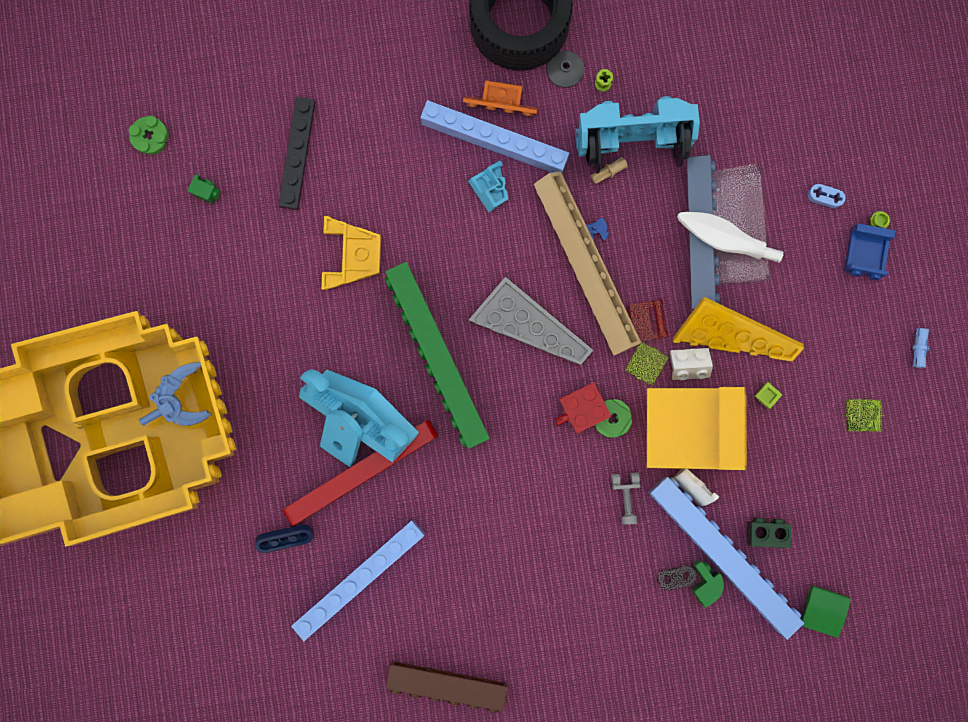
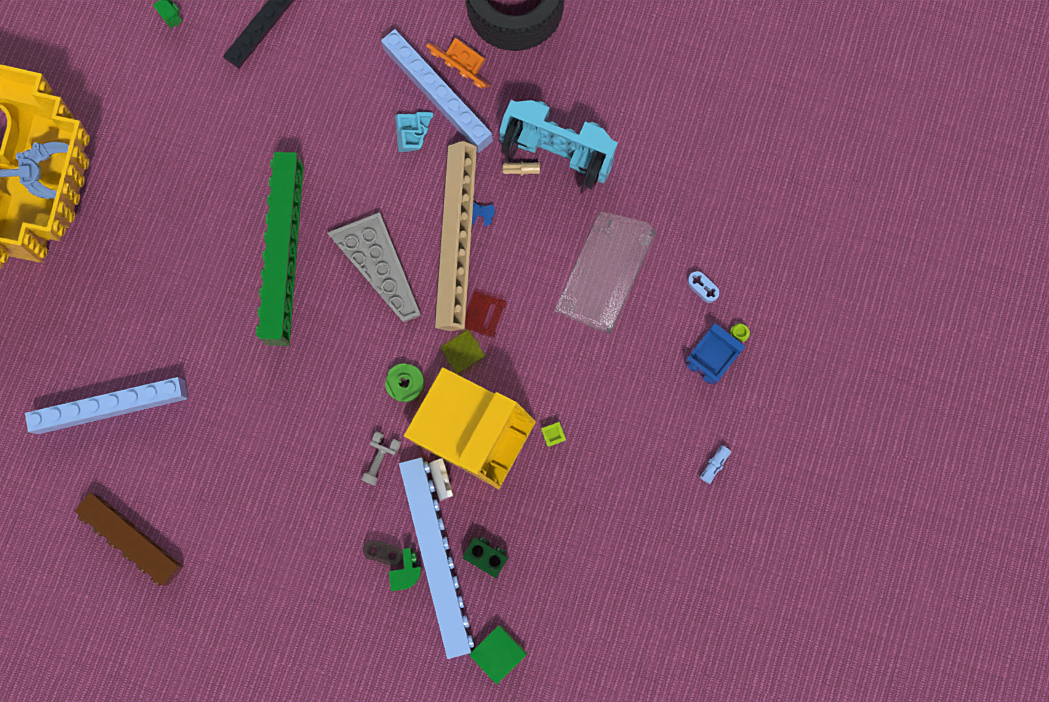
camera: 30 degrees right, 5 degrees down
(283, 538) = (65, 337): dark blue plate -> none
(350, 402) = (180, 243): medium azure piece -> none
(353, 478) = (161, 315): red beam -> none
(360, 254) = (267, 131): yellow wing -> none
(565, 77) = (536, 71): dark grey dish -> none
(584, 408) = (382, 360): red plate -> none
(608, 78) = (556, 84): lime bush -> none
(691, 364) = (500, 371): white bracket -> none
(702, 256) = (571, 262): sand blue brick -> none
(726, 236) = (587, 272): white animal -> none
(733, 332) = (550, 361): yellow wing -> none
(863, 415) = (632, 498): clear neon green piece -> none

